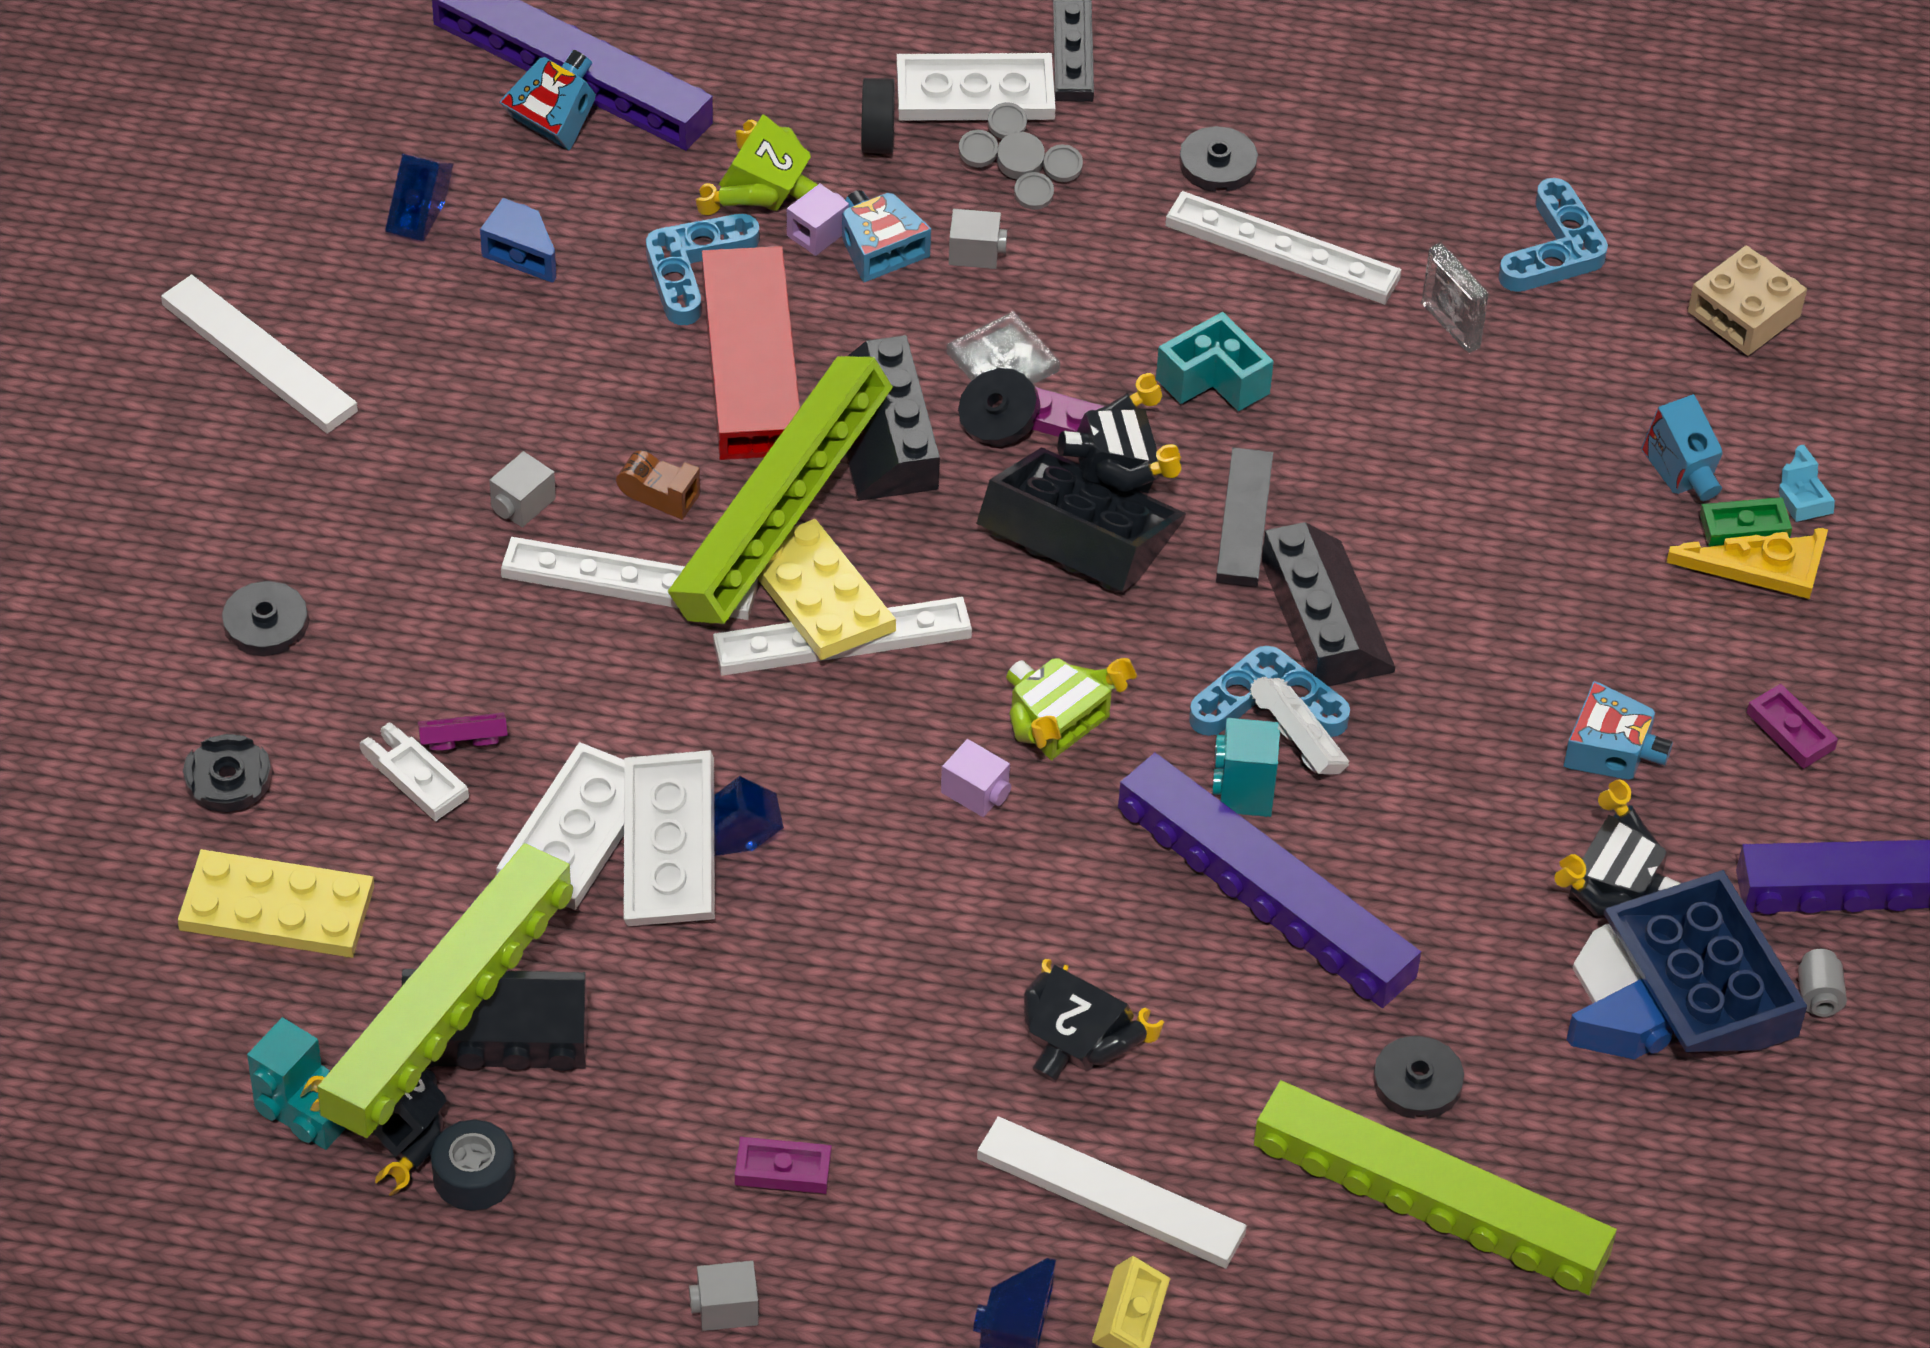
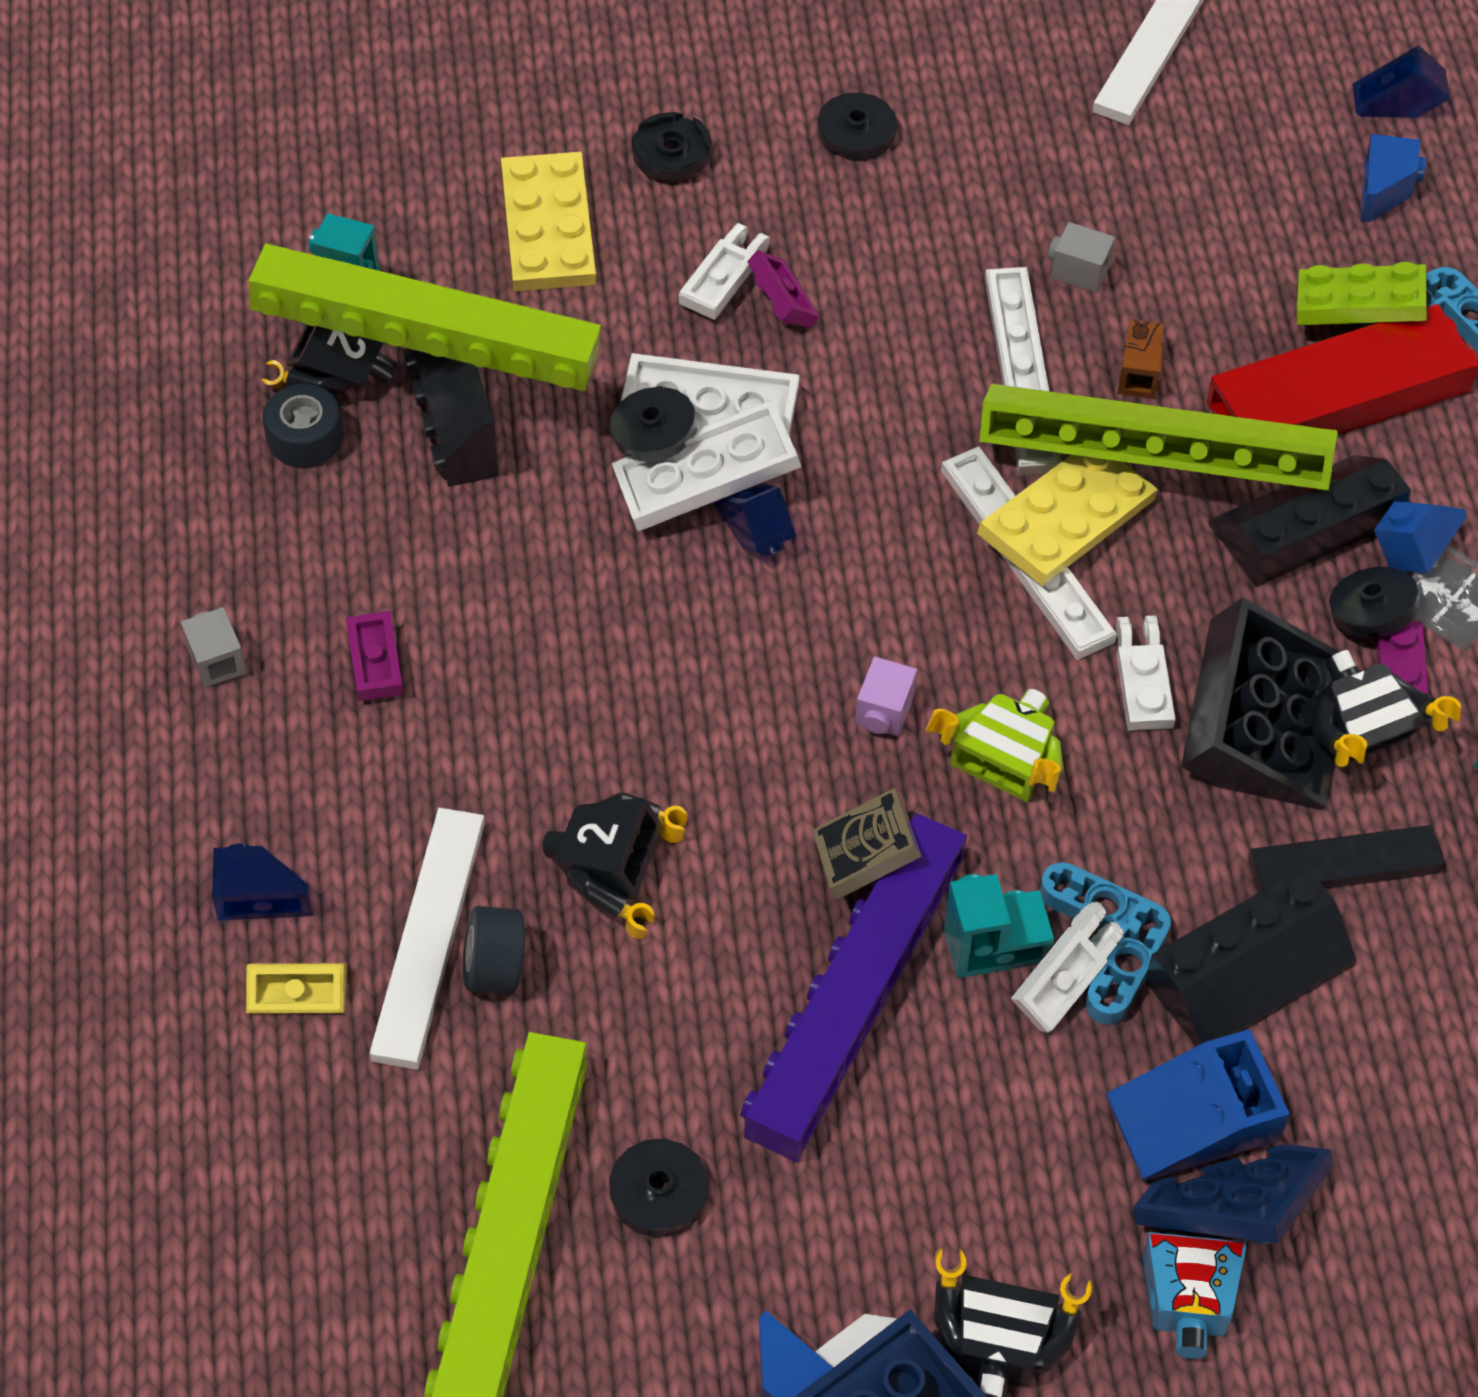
camera: 75 degrees right, 5 degrees up
(612, 882) = (653, 423): none -> black plate
(663, 301) = (1362, 294): none -> lime plate
(942, 352) = (1417, 534): none -> blue slope
(1009, 592) = (1144, 677): none -> white hinge
(1136, 827) = (866, 843): none -> dark tan tile
(1156, 1134) = (493, 950): none -> black wheel
(1457, 677) = (1200, 1107): none -> blue slope
(1547, 675) = (1237, 1199): none -> dark blue plate

